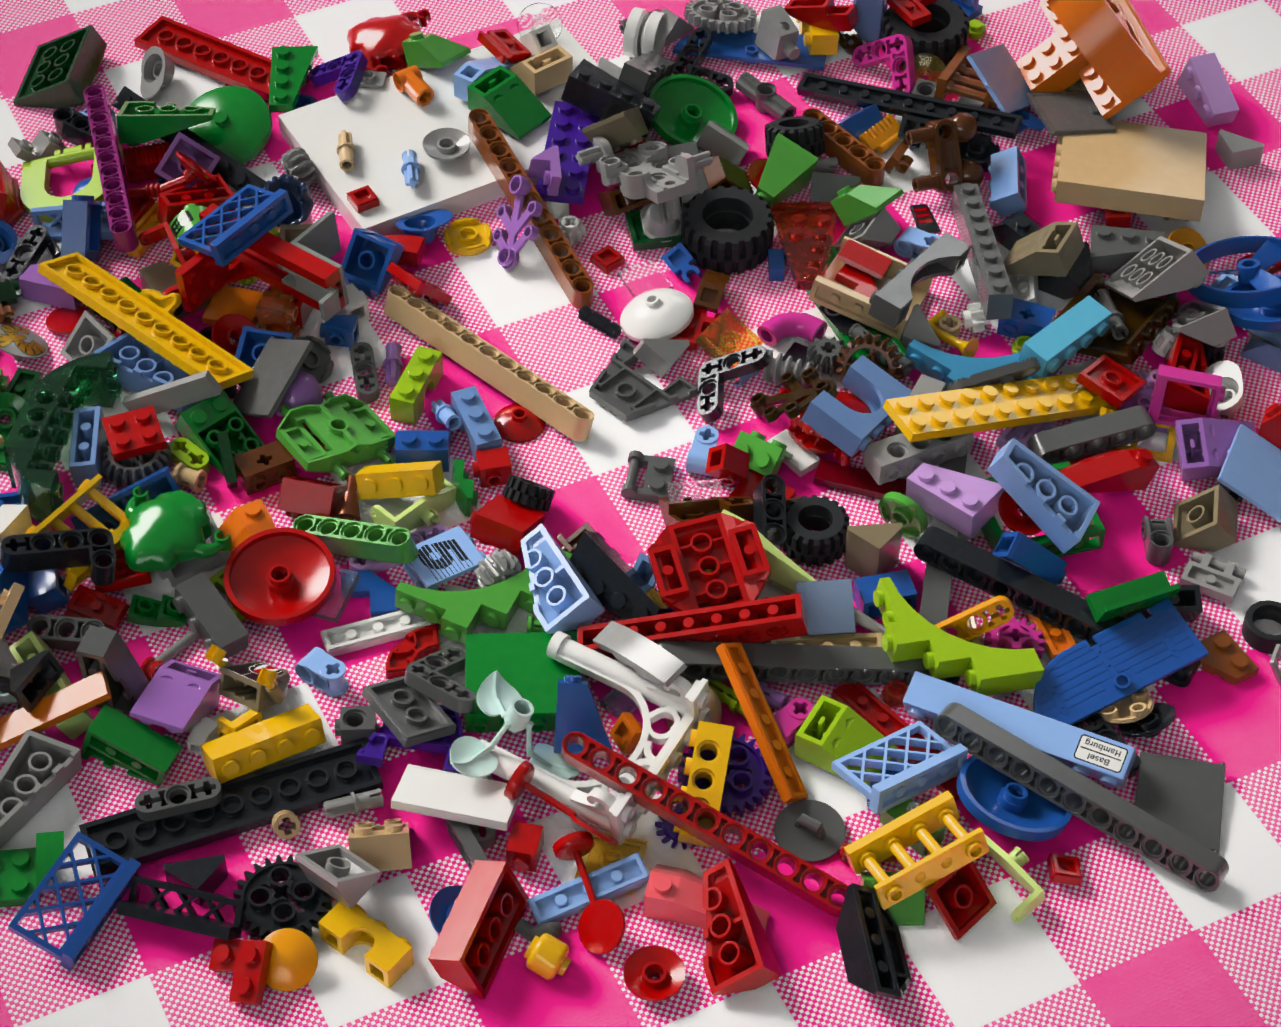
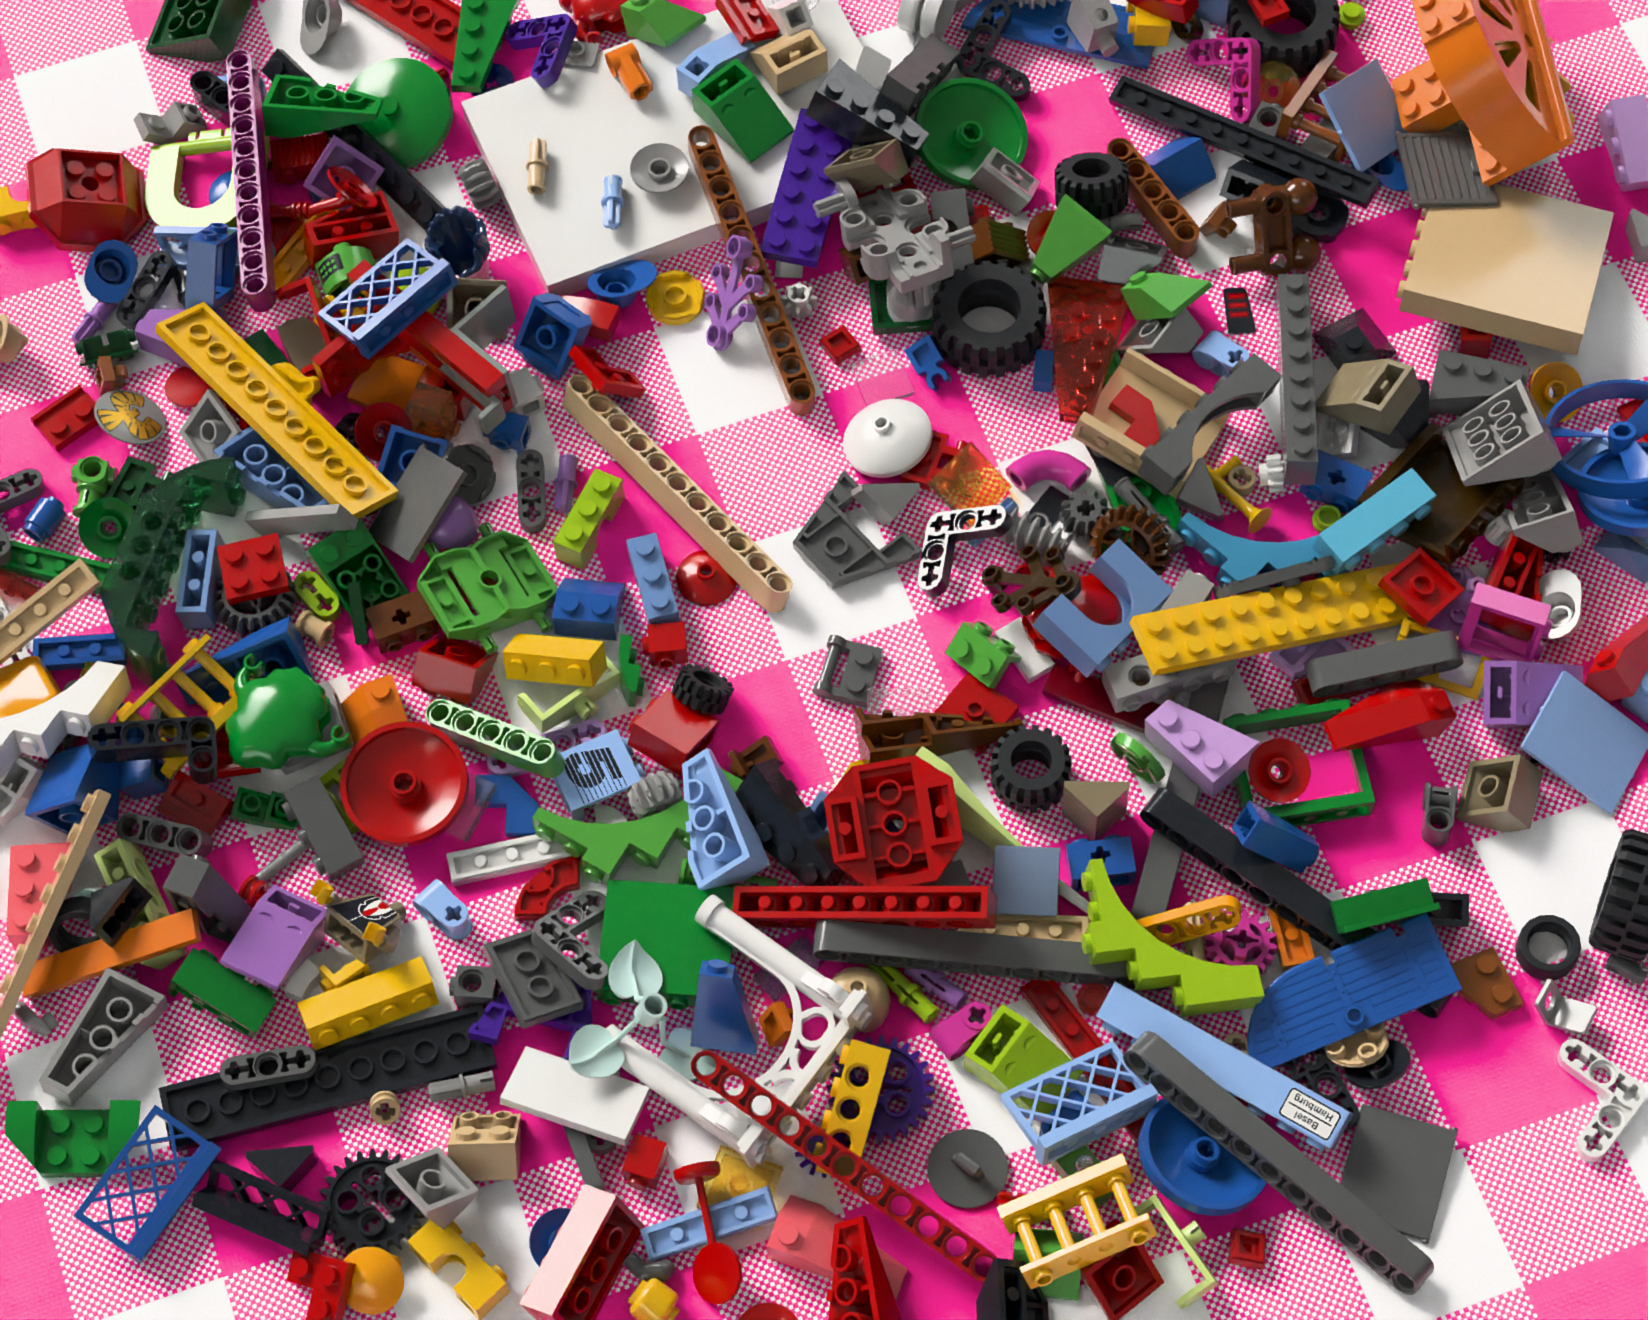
camera: 10 degrees right, 15 degrees up
(349, 504) = (493, 687): copper cone -> none
(363, 199) = (551, 242): red tile -> none
(446, 415) = (619, 565): light blue axle -> none
(521, 781) = (711, 1148): red piece -> none
(547, 167) = (776, 221): medium lavender slope -> none
(599, 322) = (818, 439): black axle -> none
(640, 653) = (796, 942): slope -> none
(704, 438) = (916, 646): light blue piece -> none
(711, 291) = (958, 407): reddish brown slope -> none
(727, 463) = (940, 669): red brick -> none
(762, 722) = (928, 1033): orange tile -> none
(764, 96) = (1067, 111): dark grey piece -> none
(774, 504) = (987, 739): black beam -> none
(865, 259) = (1148, 383): red slope -> none
(882, 135) = (1205, 187): light orange piece -> none
(1008, 182) = (1349, 269): medium blue brick -> none
(1044, 494) = (1305, 762): light blue wedge -> none
(1117, 319) = (1439, 485): dark grey pin -> none
(1214, 576) = (1489, 877): light grey plate -> none

